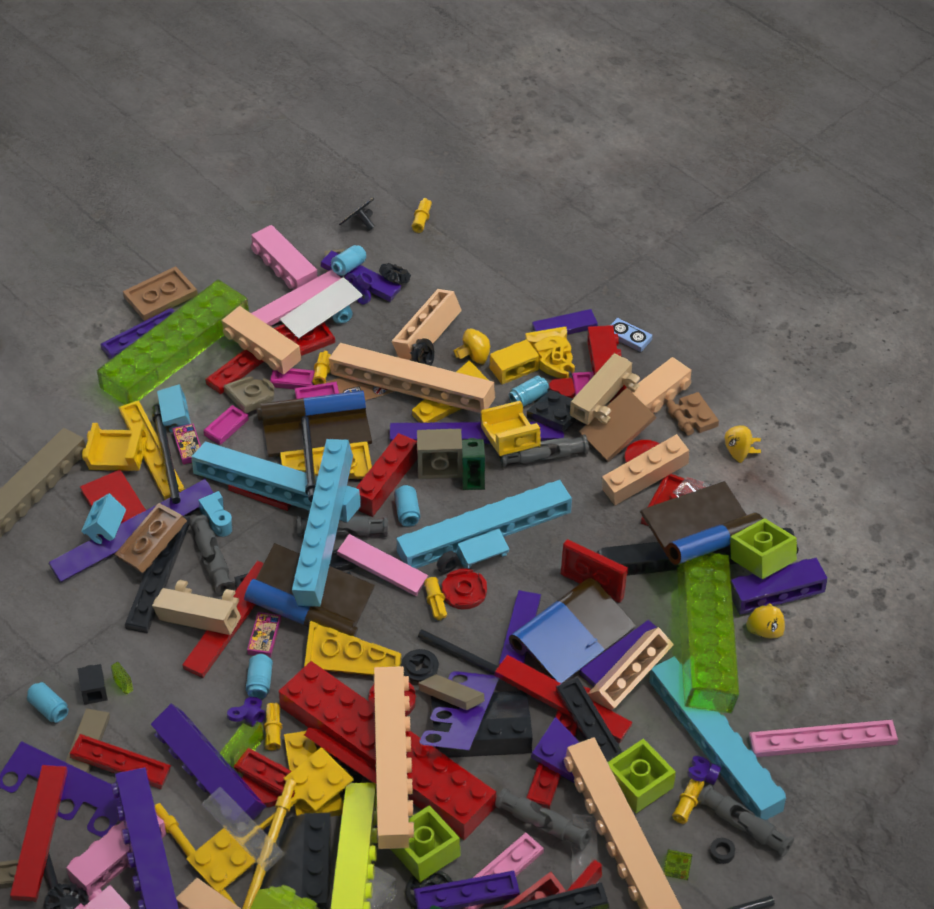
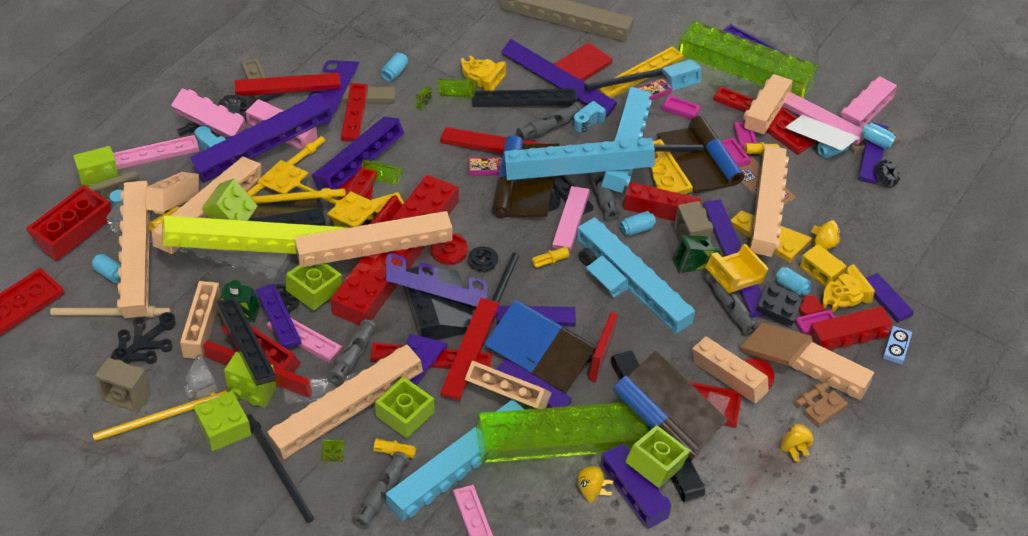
camera: 75 degrees right, 0 degrees up
(92, 684) = (414, 83): black brick -> none
(96, 605) = (484, 72): none -> yellow piece
(104, 519) = (554, 54): medium azure hinge -> none
(115, 448) = (629, 49): yellow panel -> none
(115, 637) = (457, 87): none -> clear neon green panel
(150, 537) = (547, 82): medium nougat plate -> none
(160, 293) = (796, 43): medium nougat plate -> none
(196, 610) = (488, 122): tan brick -> none
(243, 829) = (302, 177): clear tile -> none
(249, 712) = (412, 169): dark purple piece -> none
(250, 392) = (717, 113): dark tan tile -> none
(259, 676) = (446, 168): medium azure head -> none
(272, 727) = (403, 184): yellow axle -> none
(346, 653) = (477, 212): yellow wing -> none
(362, 284) = (861, 152): dark purple piece -> none
(364, 216) = (943, 143): black shield -> none
(421, 215) = (968, 180): yellow axle -> none
(427, 322) = (833, 200): light nougat brick -> none
(428, 352) = (802, 210): black gear -> none
(451, 692) = (454, 275): dark tan tile -> none
(464, 589) = (568, 275): red tile -> none
(587, 717) = (449, 365): black tile -> none
(601, 389) = (805, 320): tan brick -> none
(703, 770) = (423, 453): dark purple piece -> none
(724, 842) = (352, 473): black piece -> none

